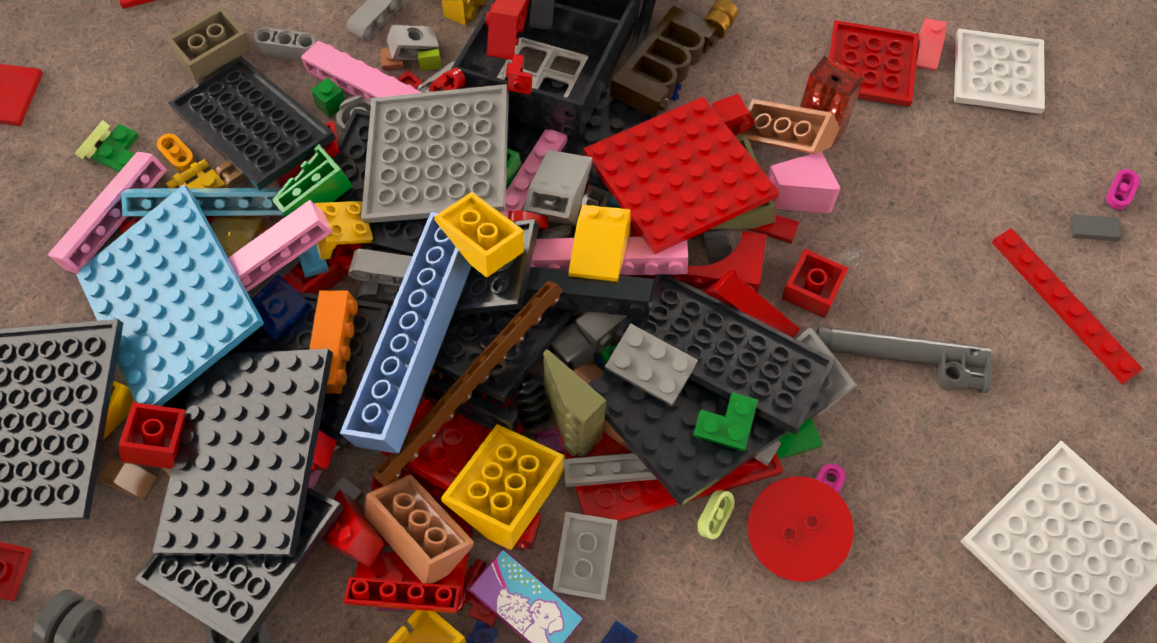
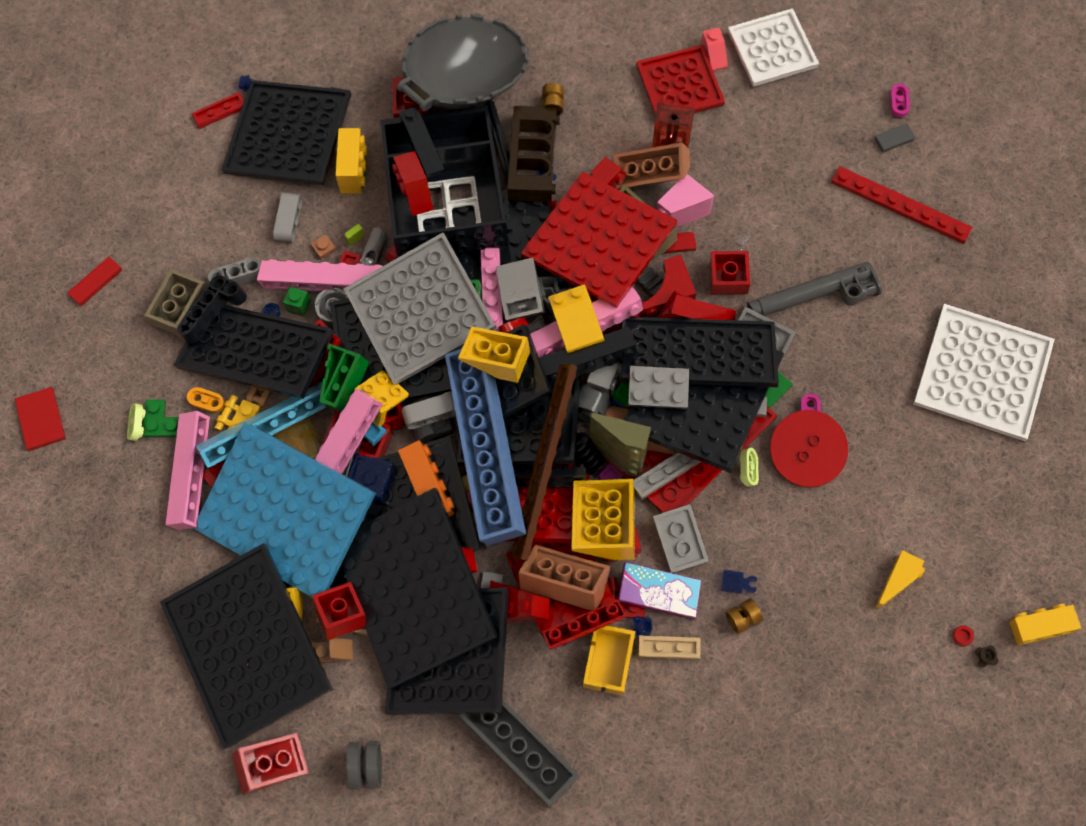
camera: 25 degrees left, 5 degrees up
(234, 60) = (208, 307): none -> black beam
(299, 91) = (272, 307): none -> clear blue plate
(407, 41) = (332, 227): light grey brick -> none
(445, 81) = (392, 250): red beam -> none
(517, 79) = (451, 226): red bracket -> none
(731, 429) = (736, 402): green plate -> none

